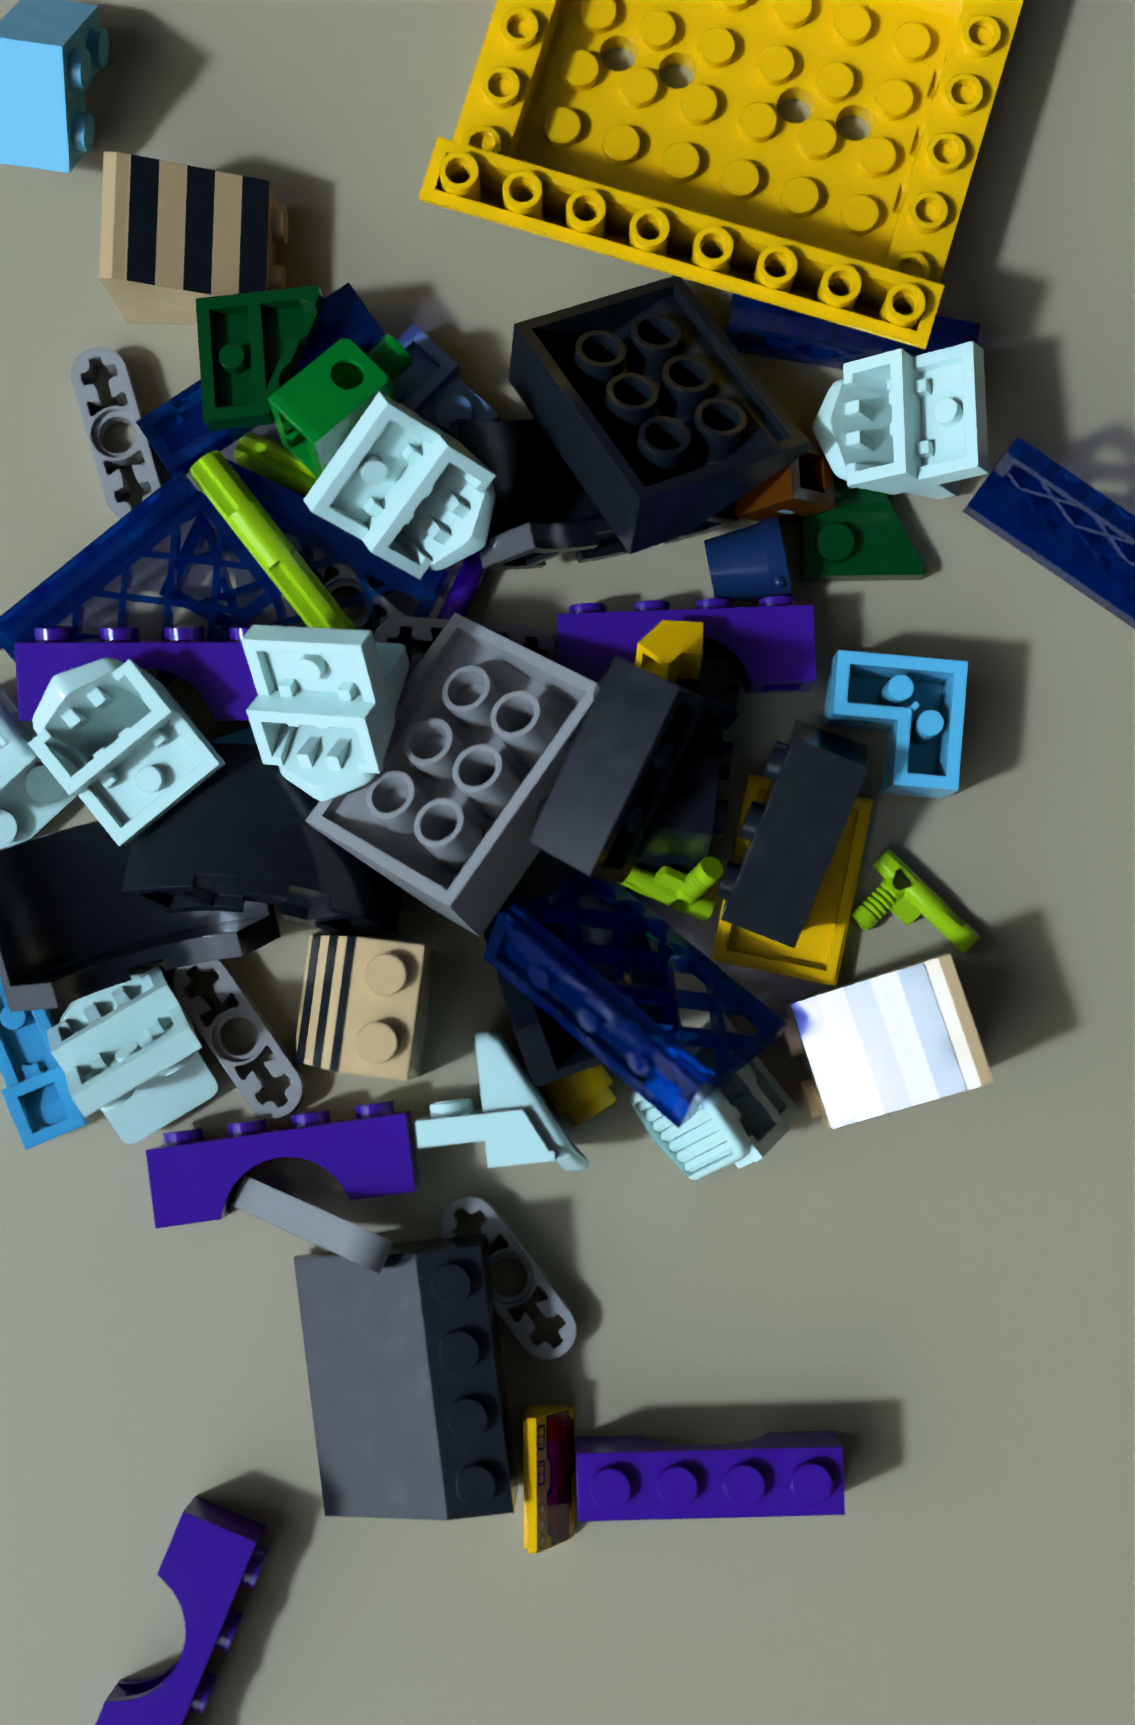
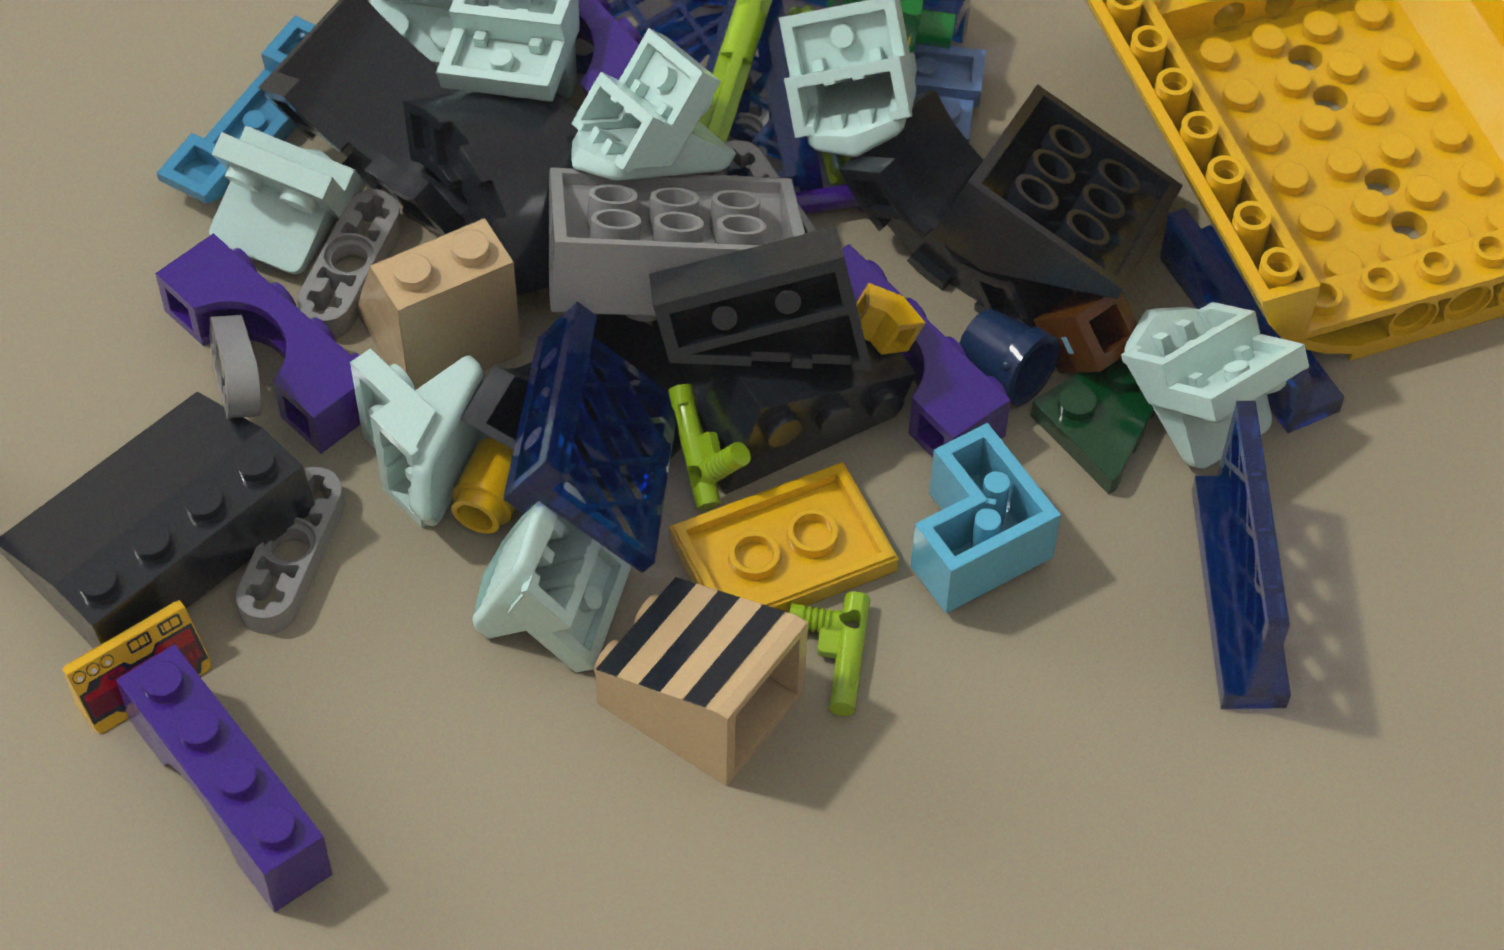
camera: 50 degrees right, 30 degrees down
(793, 832) = (817, 488): black wedge -> none

